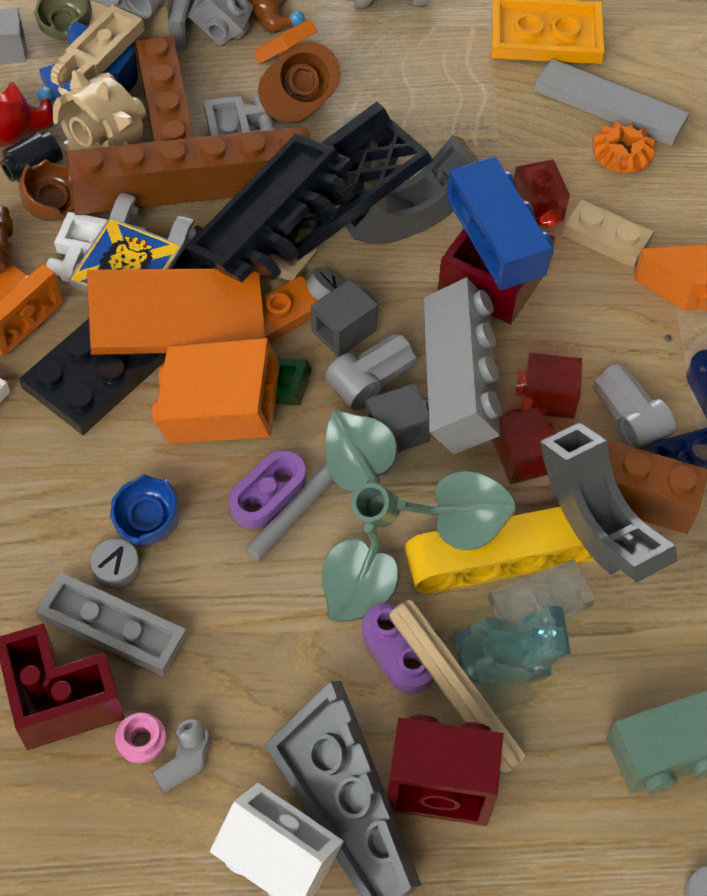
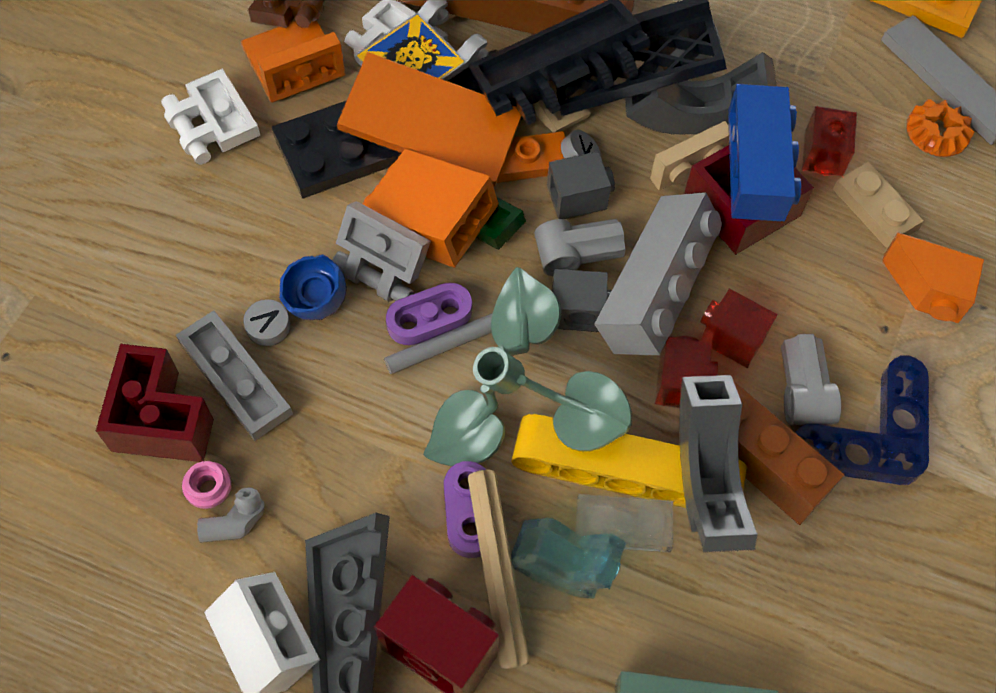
camera: 25 degrees right, 5 degrees up
(198, 441) = (383, 243): none -> light grey plate
(423, 259) = (675, 163): none -> tan plate

